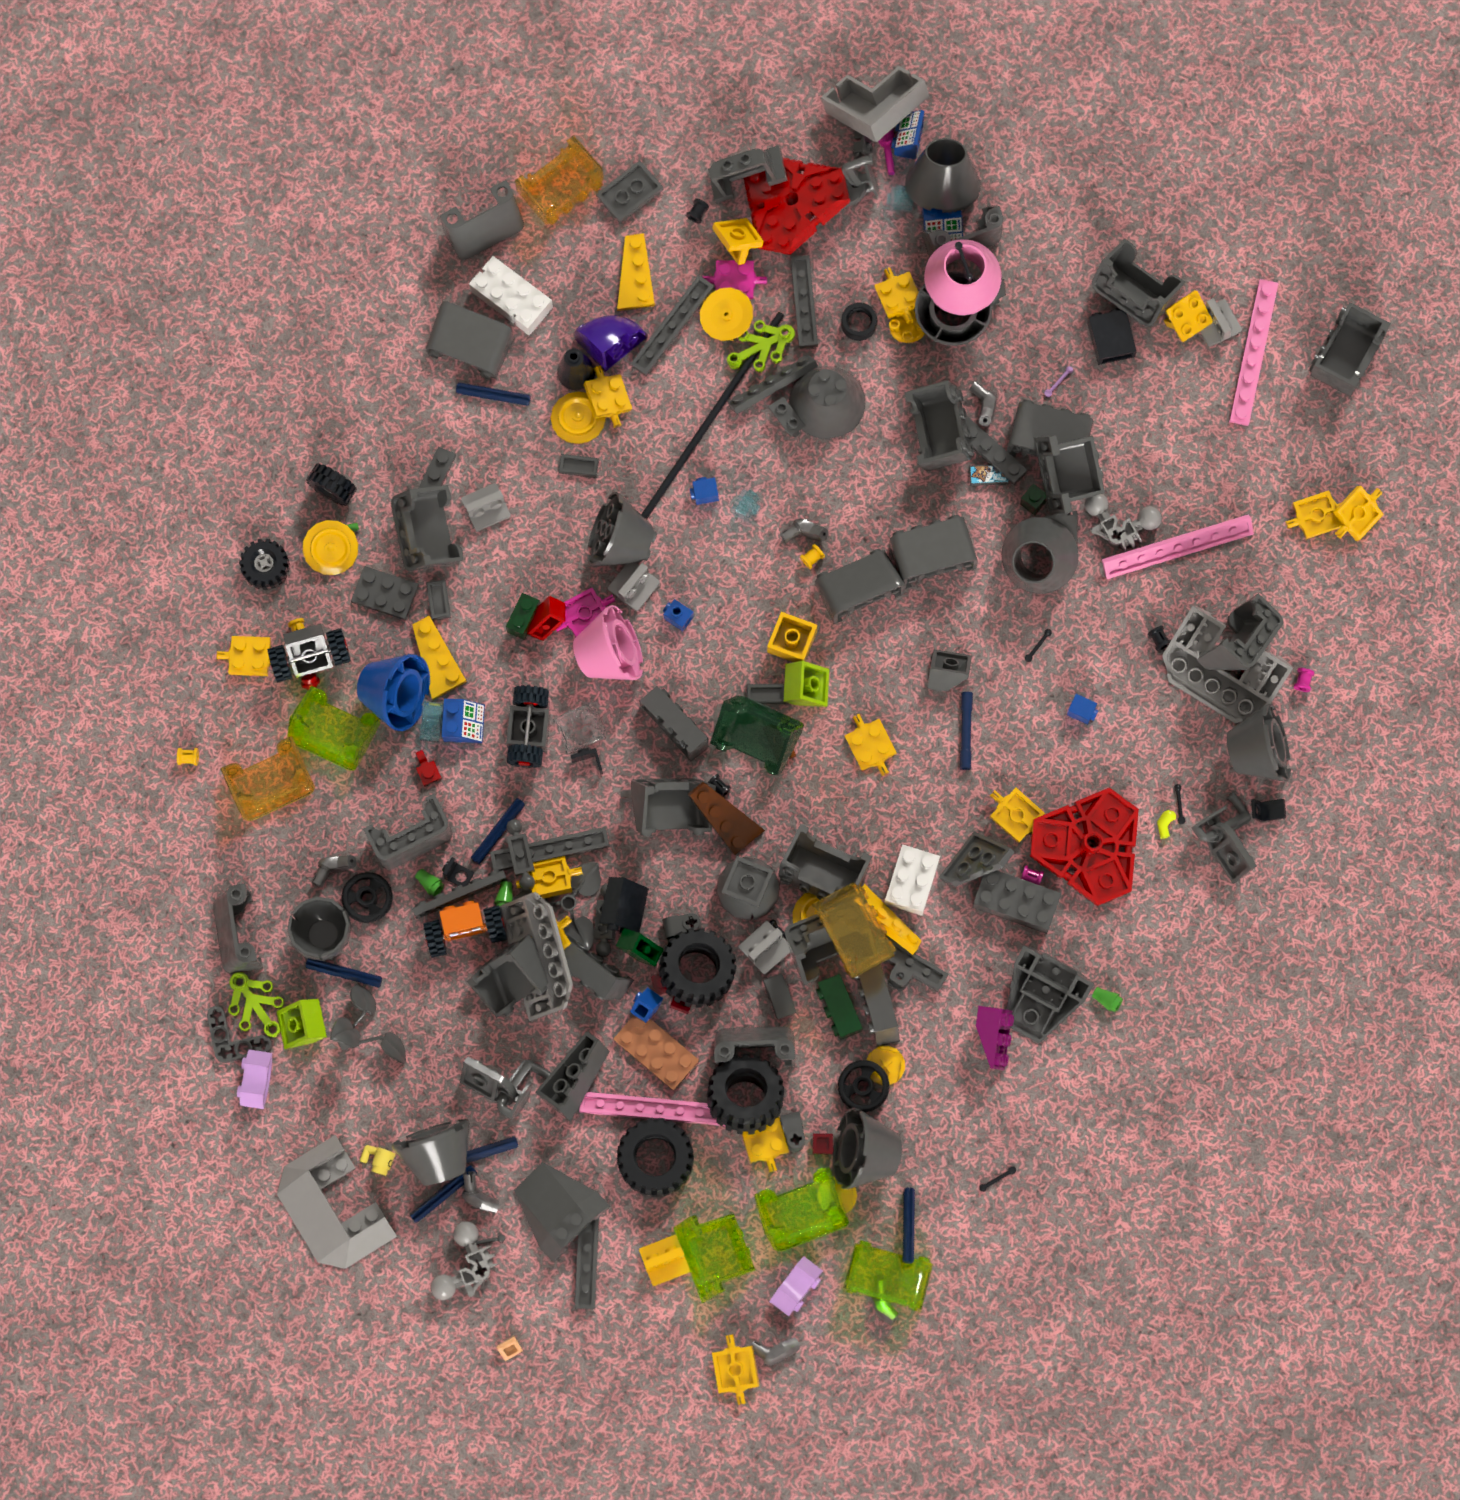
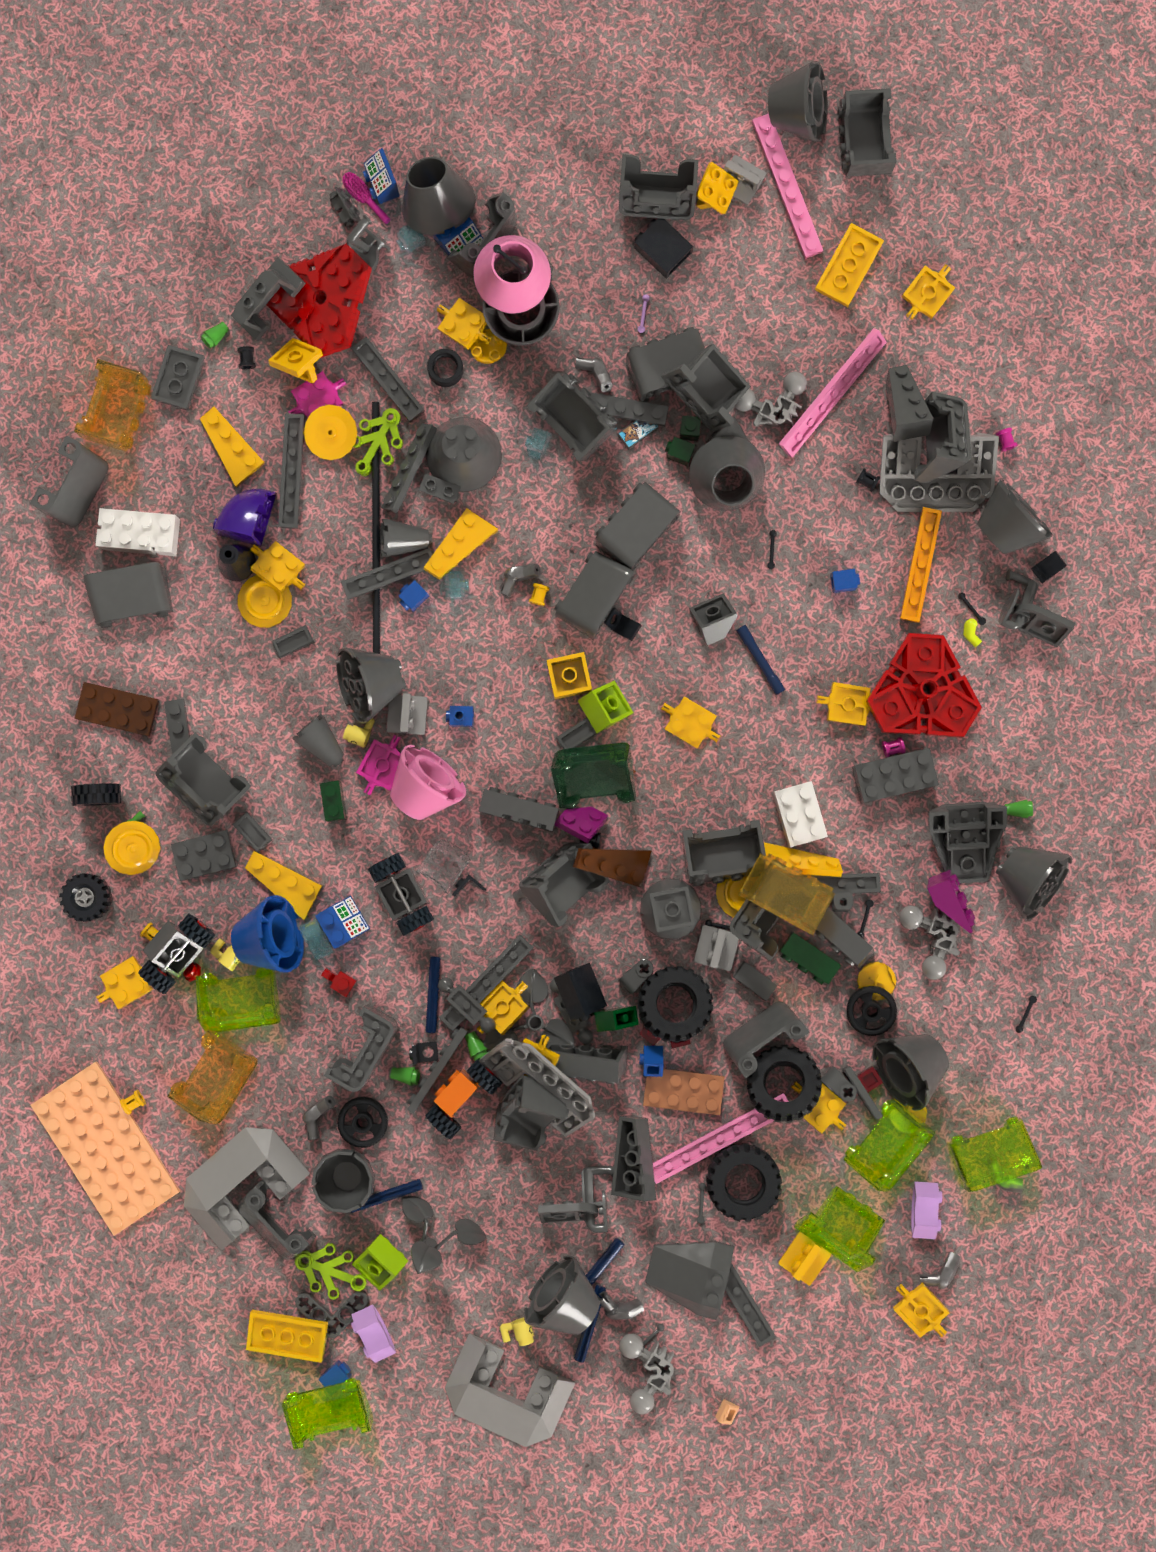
camera: 35 degrees left, 10 degrees up
(138, 781) = (105, 1148): none -> light nougat plate
(174, 1113) = (327, 1411): none -> clear neon green windscreen
(182, 1032) = (286, 1336): none -> yellow plate
(199, 1094) = (335, 1374): none -> blue brick
(229, 863) = (246, 1152): none -> light grey slope
(349, 689) = (227, 958): none -> light yellow piece
(395, 428) = (116, 709): none -> reddish brown plate
(486, 507) = (239, 727): light grey bracket -> none
(493, 394) = (180, 626): dark blue axle -> none
(546, 560) = (320, 741): none -> dark grey cone
(547, 618) = (355, 790): red slope -> none
(581, 576) = (358, 735): none -> light yellow piece
(597, 1168) = (700, 1219): none -> dark grey hinge
(683, 176) = (214, 335): none -> bright green cone
(696, 459) = (386, 574): none -> dark grey plate
(720, 766) = (581, 822): none -> magenta plate
(728, 437) = (402, 538): none -> dark grey cone
(782, 469) = (462, 539): none -> yellow wing
(808, 1151) = (862, 1093): none -> dark grey tile
(866, 627) = (622, 625): none -> black bracket
(876, 109) = (341, 173): light grey piece -> none
(896, 432) = (538, 443): none -> clear light blue brick
(908, 1225) = (983, 1102): dark blue axle -> none
(923, 996) = (869, 903): none -> black hinge
(943, 1083) = (933, 966): none -> light grey piece
(975, 859) = (841, 764): dark grey plate -> none
(1012, 512) = (679, 451): none -> dark green brick
(1079, 1062) = (1032, 876): none -> dark grey cone
(1158, 738) = (920, 564): none -> light orange plate
(1229, 596) = (907, 406): none -> dark grey wedge
(1263, 450) = (849, 265): none -> yellow plate
(1307, 289) = (800, 103): none -> dark grey cone
(1358, 513) = (962, 269): yellow plate -> none

